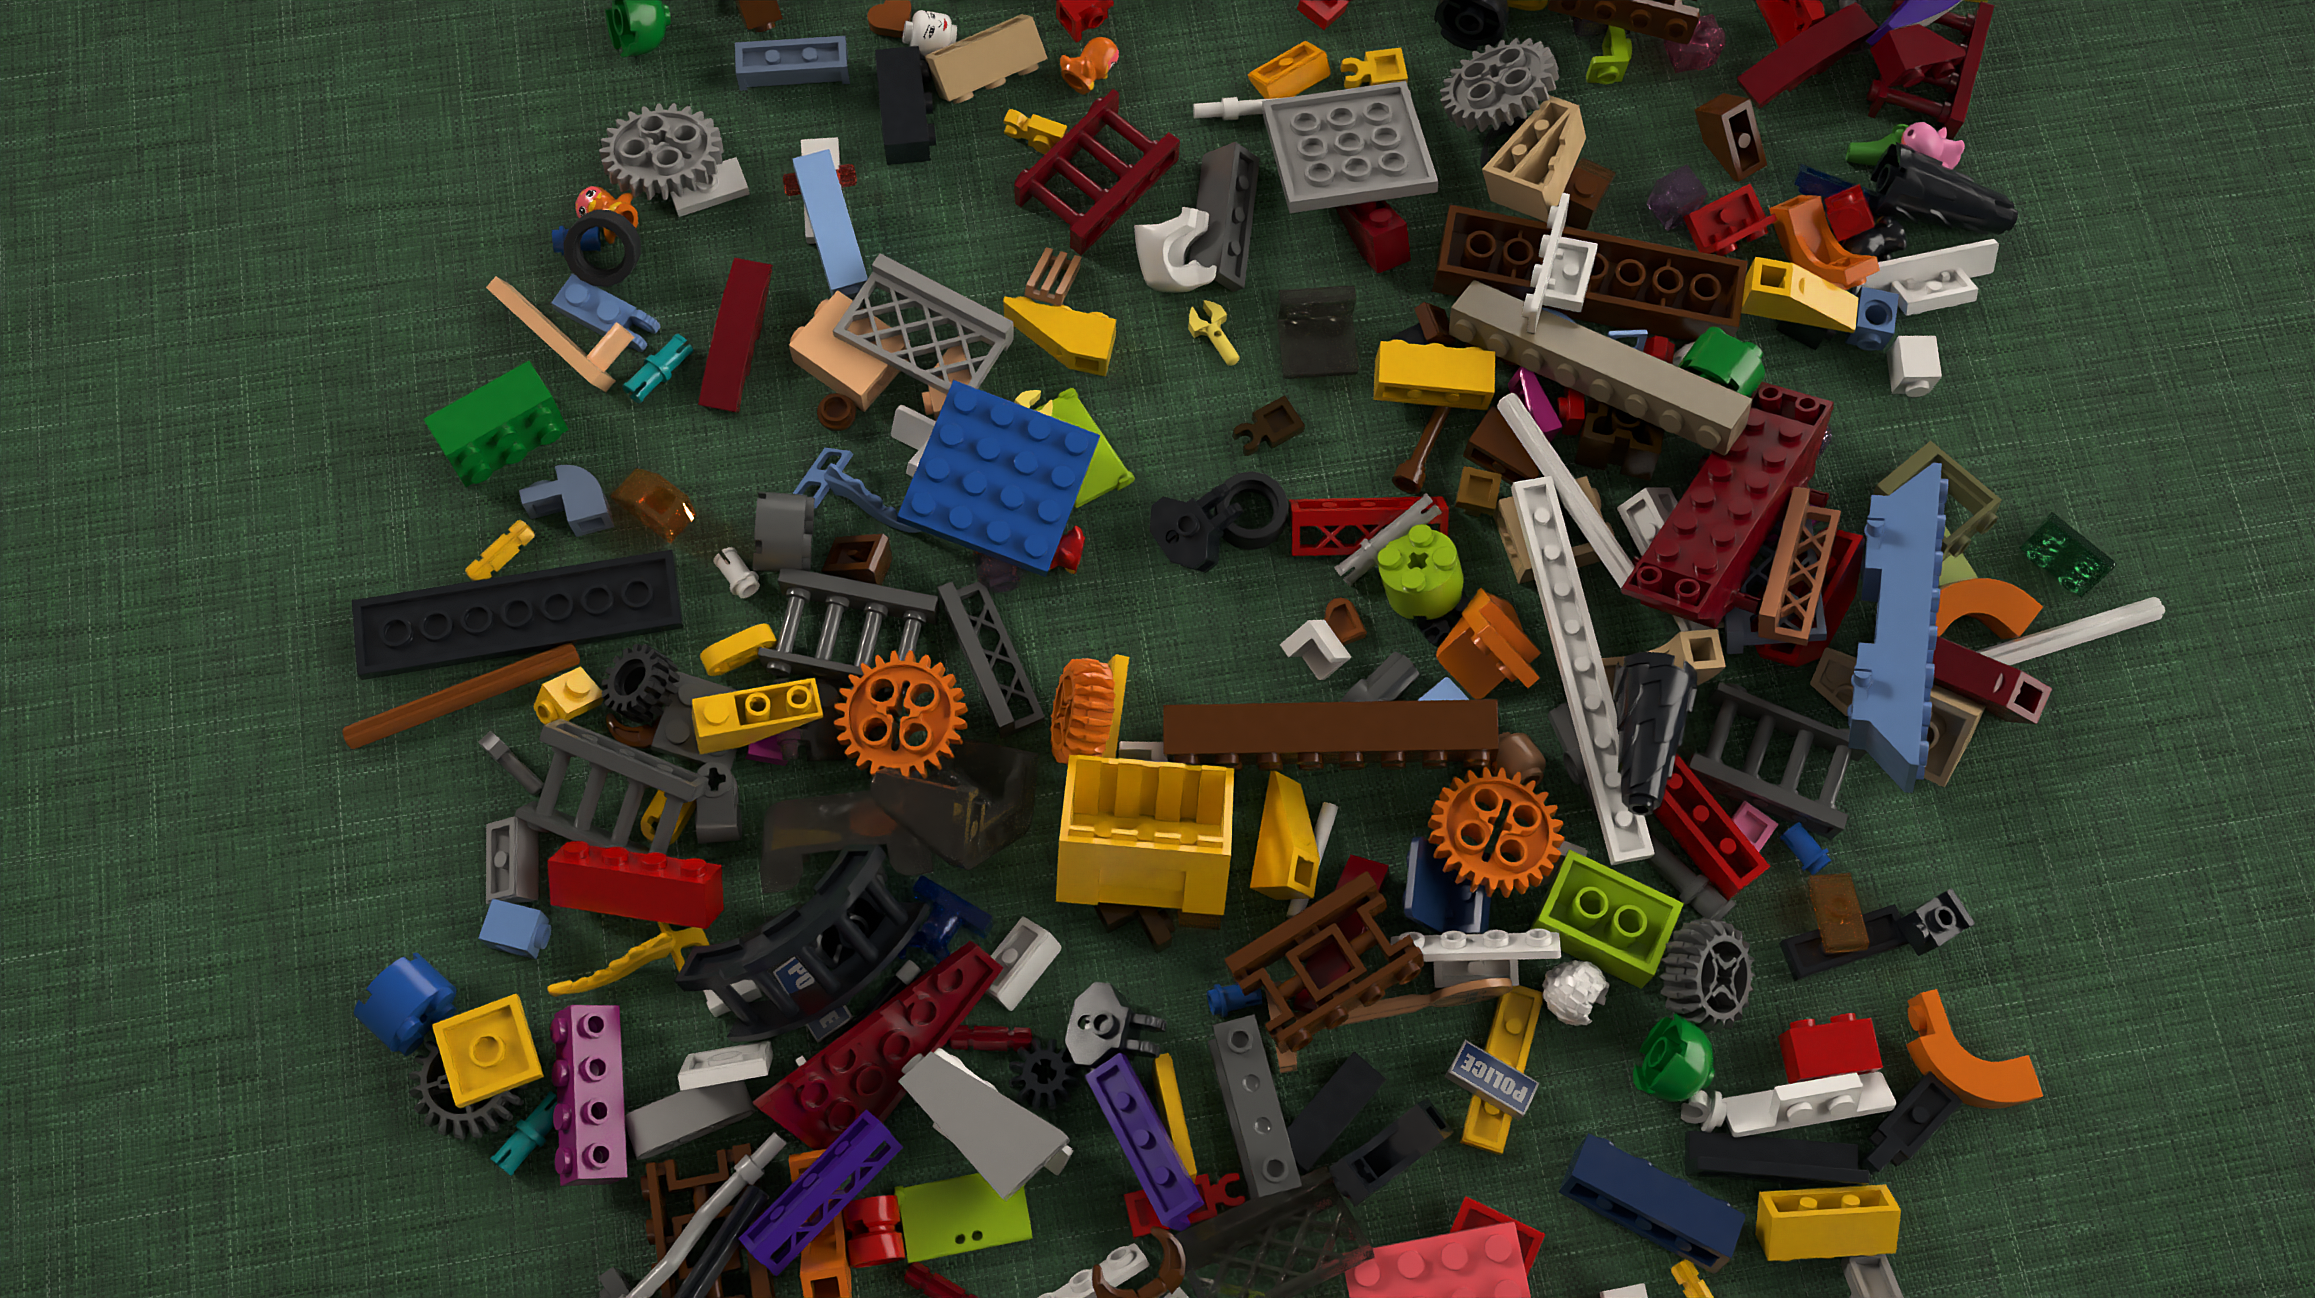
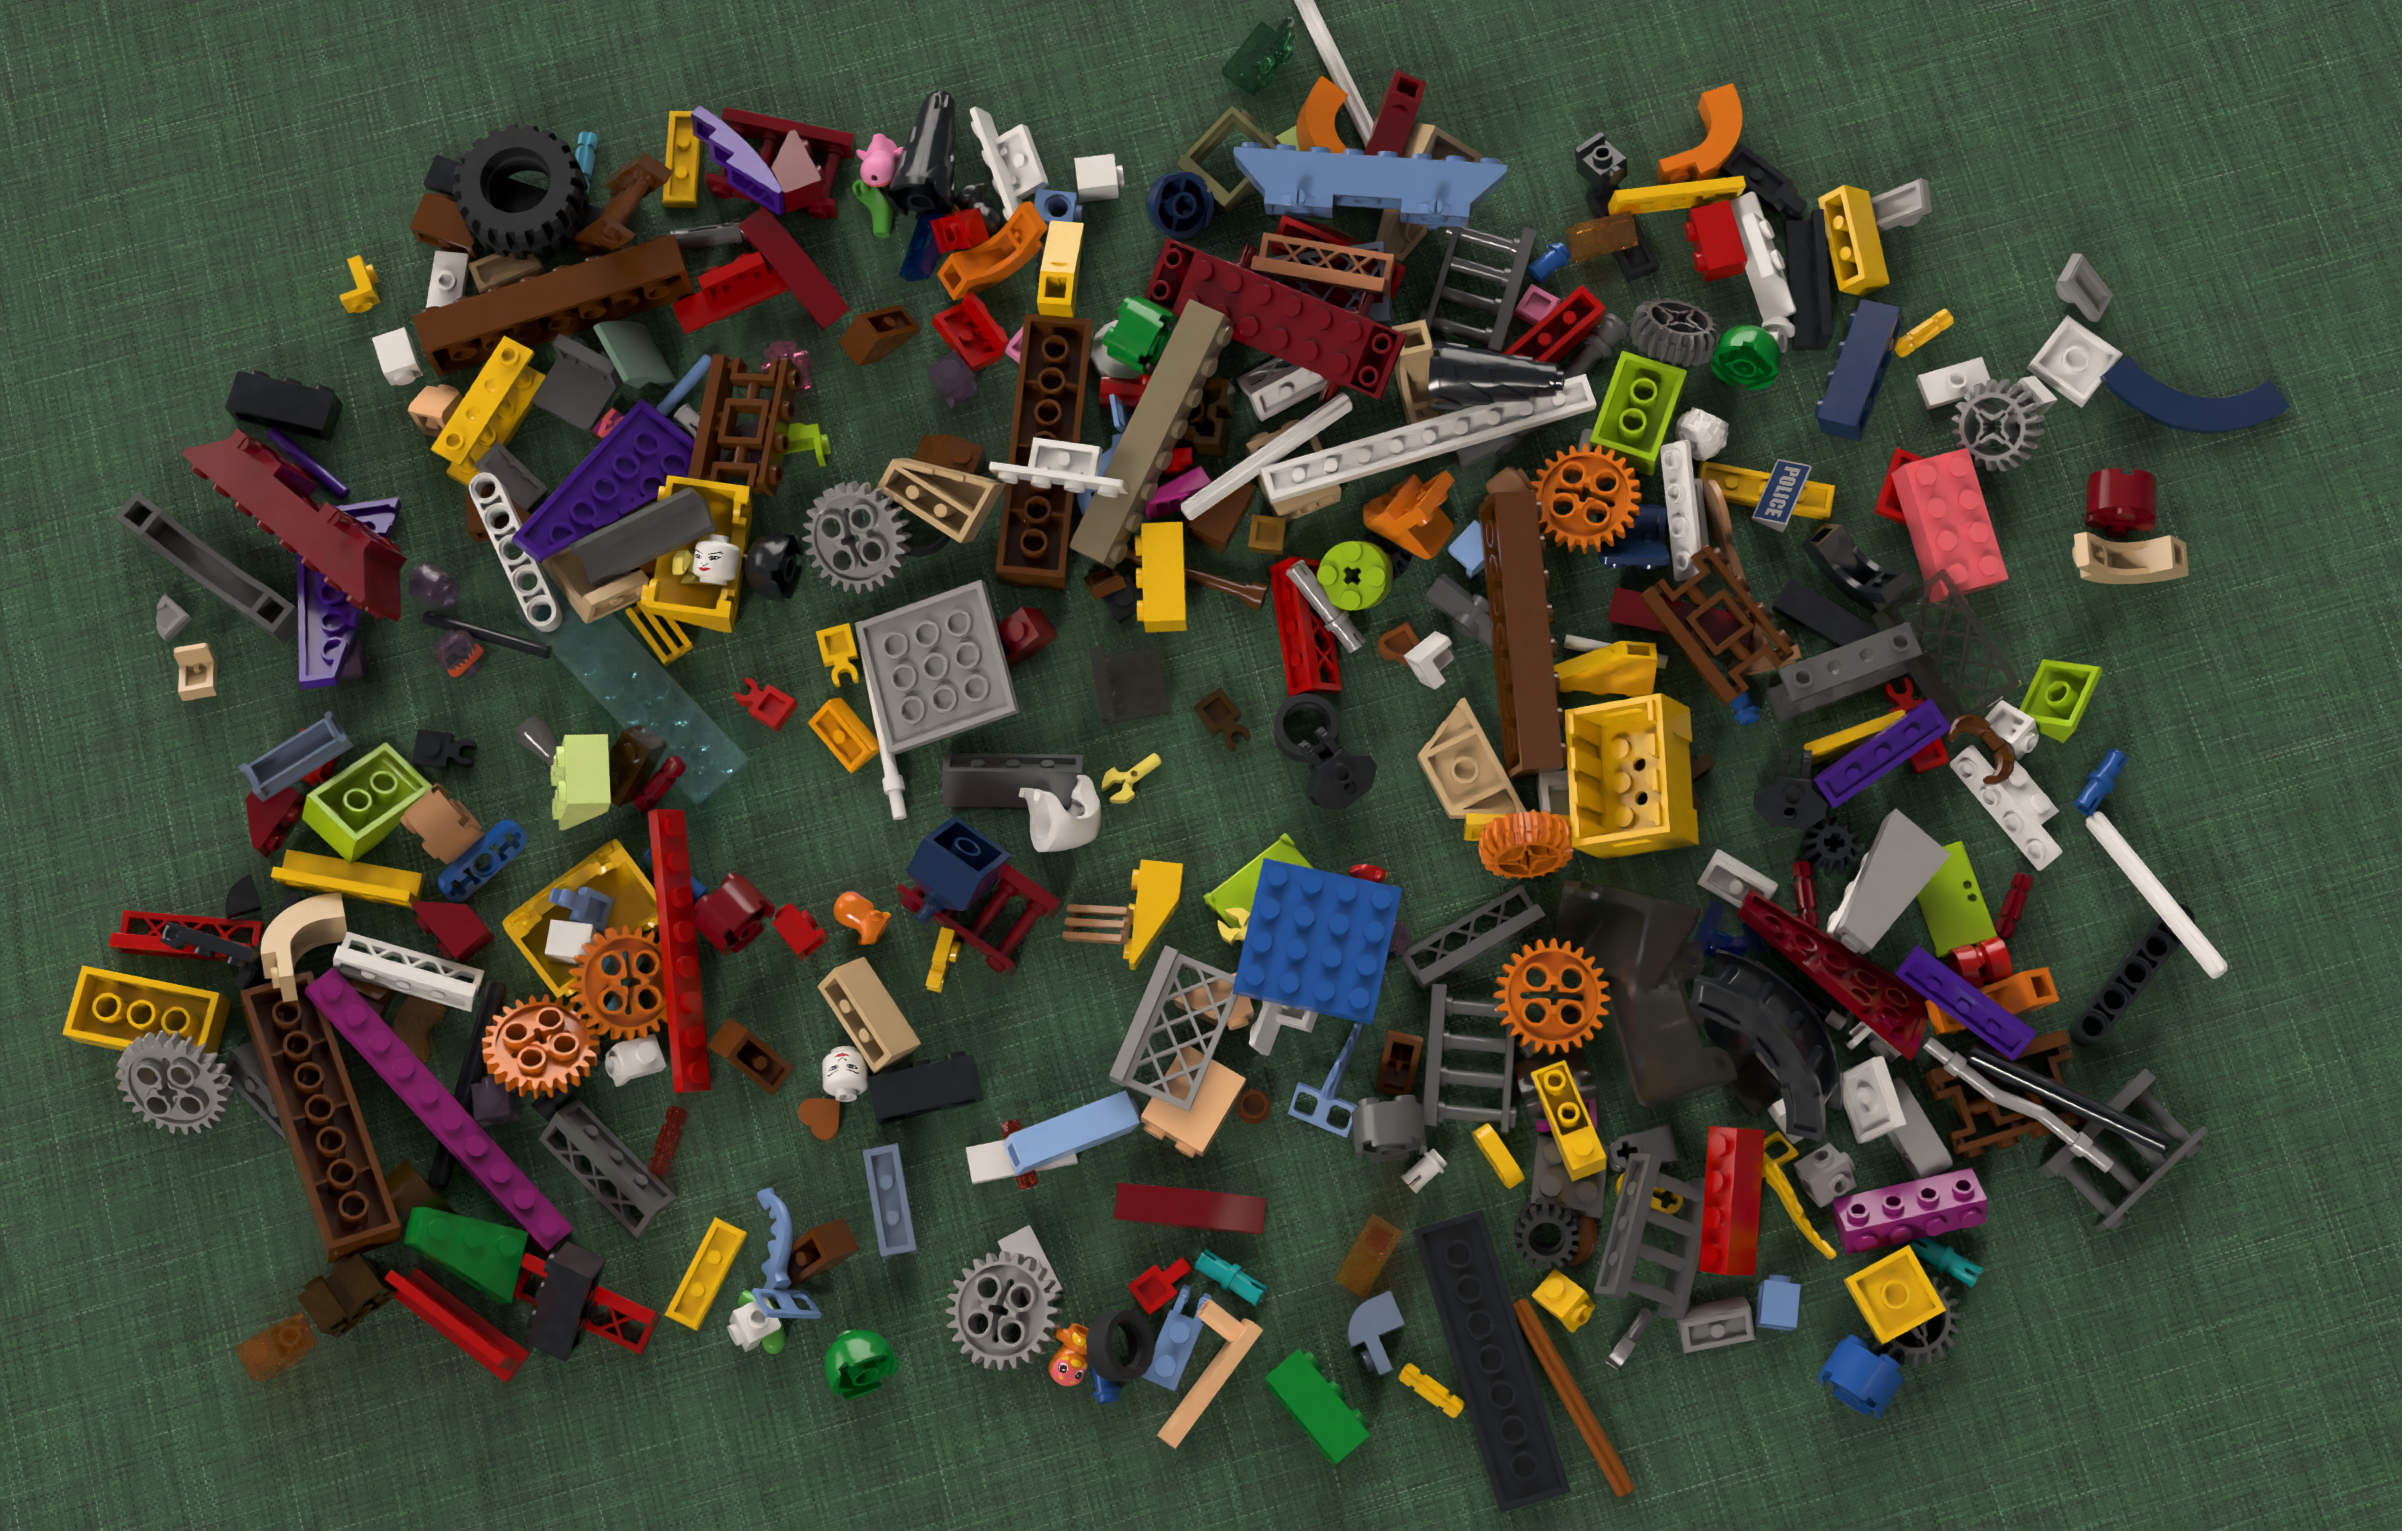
camera: 90 degrees left, 5 degrees up
(651, 1003) = (1826, 1174): none -> light grey brick
(662, 297) = (1155, 1287): none -> red plate
(1125, 130) = (955, 868): none -> dark blue piece
(1182, 670) = (1466, 768): none -> tan wing
(1878, 437) = (1179, 204): none -> dark blue cylinder
(1889, 1007) = (1676, 195): none -> yellow tile

